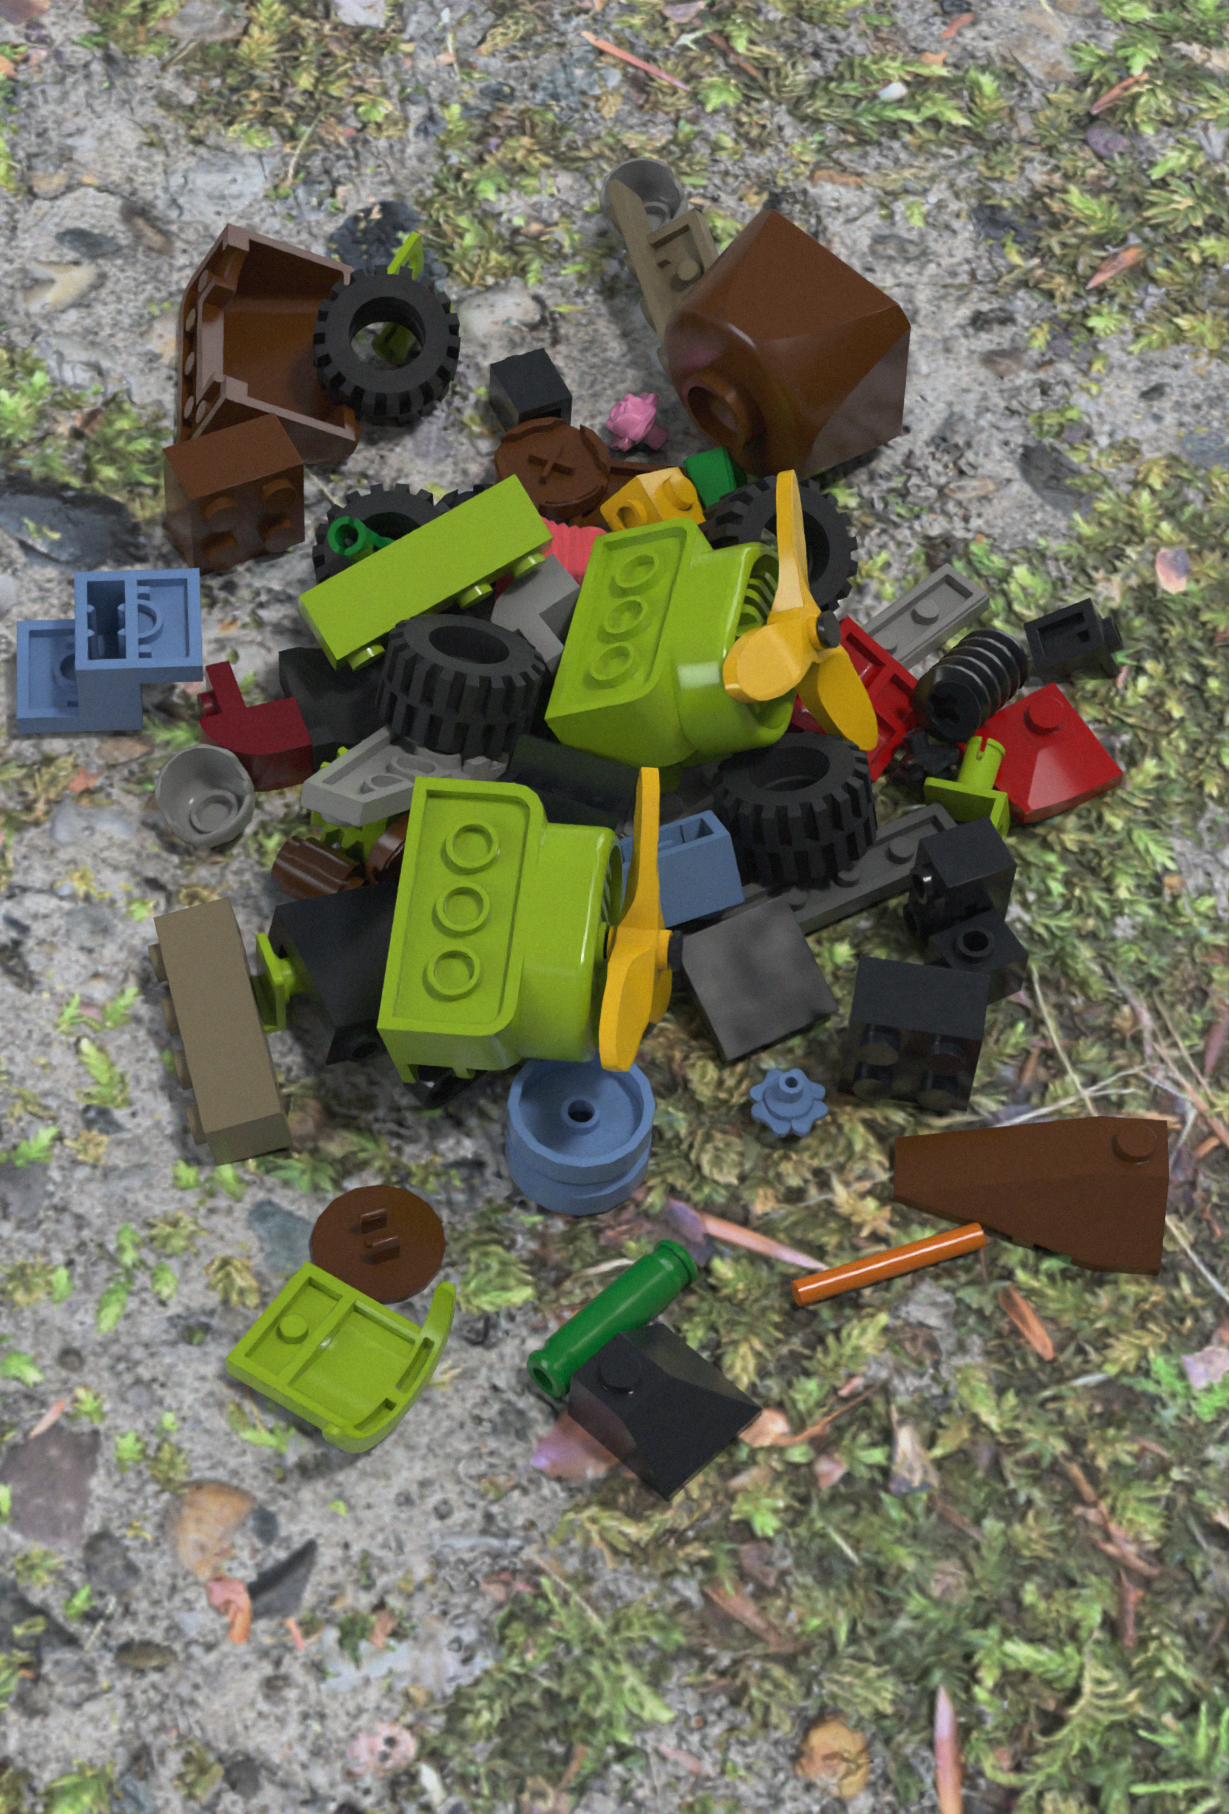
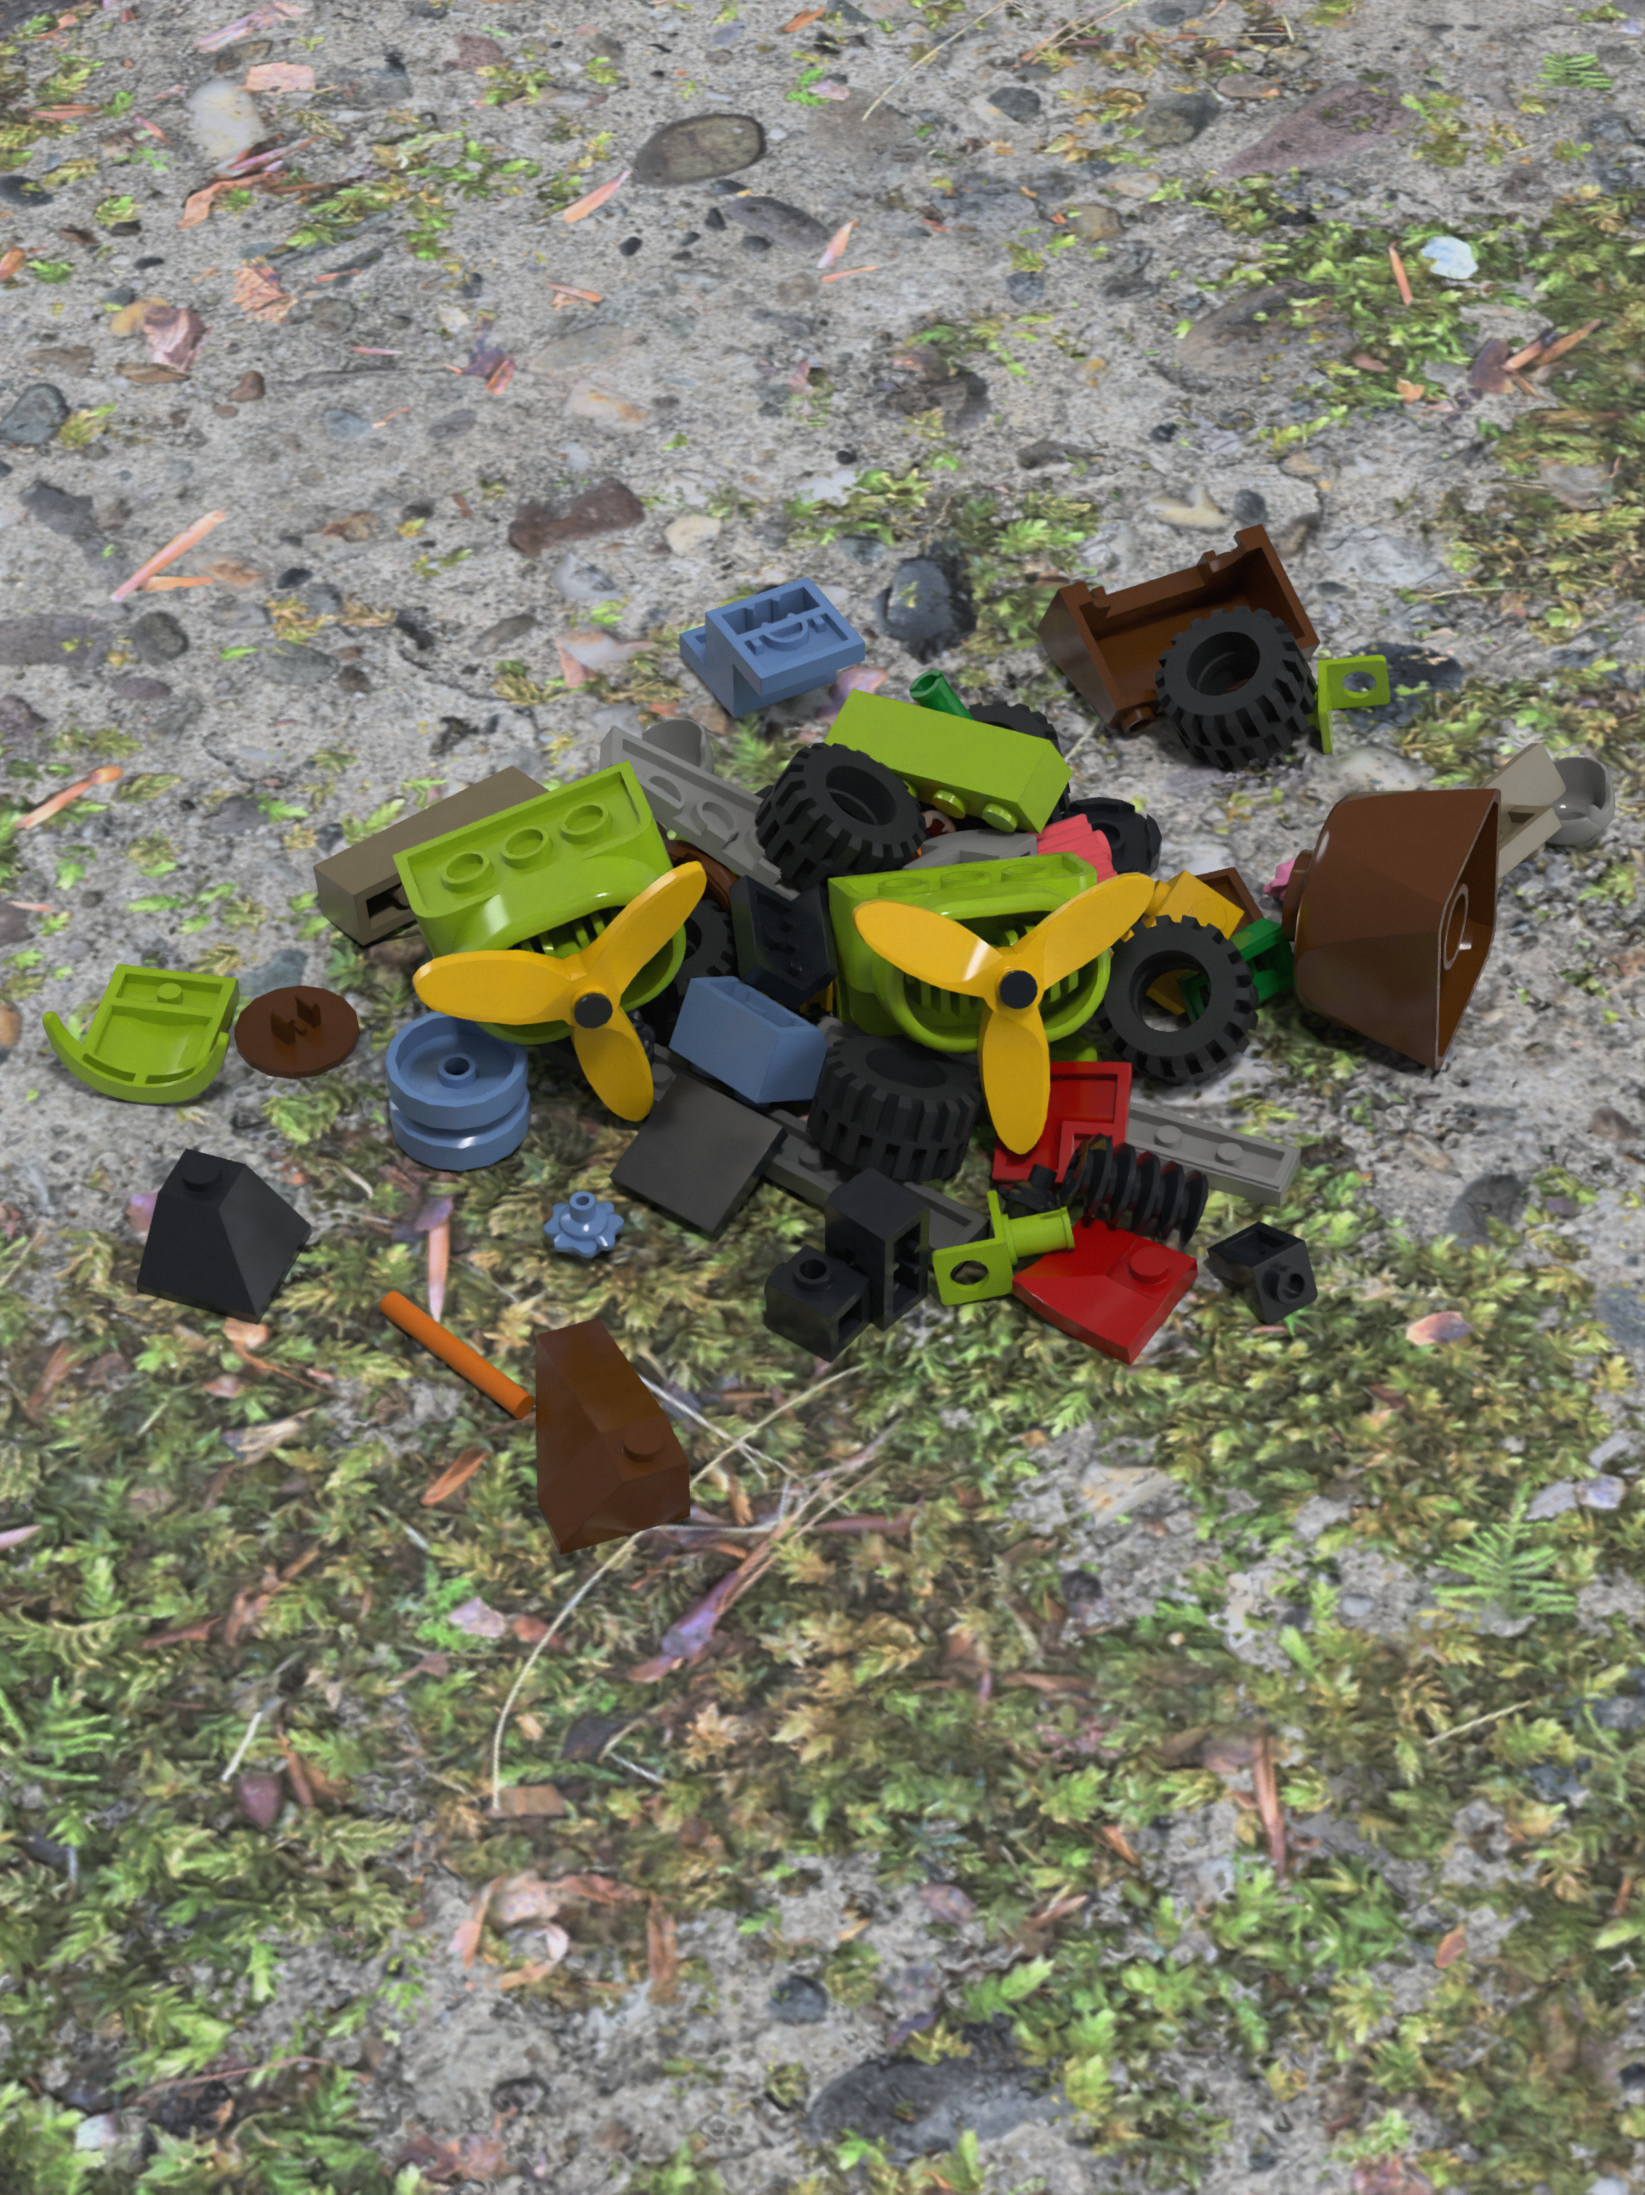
camera: 70 degrees right, 10 degrees down
(234, 494) = (995, 646): reddish brown brick -> none
(264, 737) = (761, 755): dark red brick -> none
(528, 389) = (1270, 810): black brick -> none
(557, 465) = (1203, 840): reddish brown tile -> none
(622, 1306) = (311, 1188): green axle -> none
(914, 1033) = (684, 1265): black brick -> none

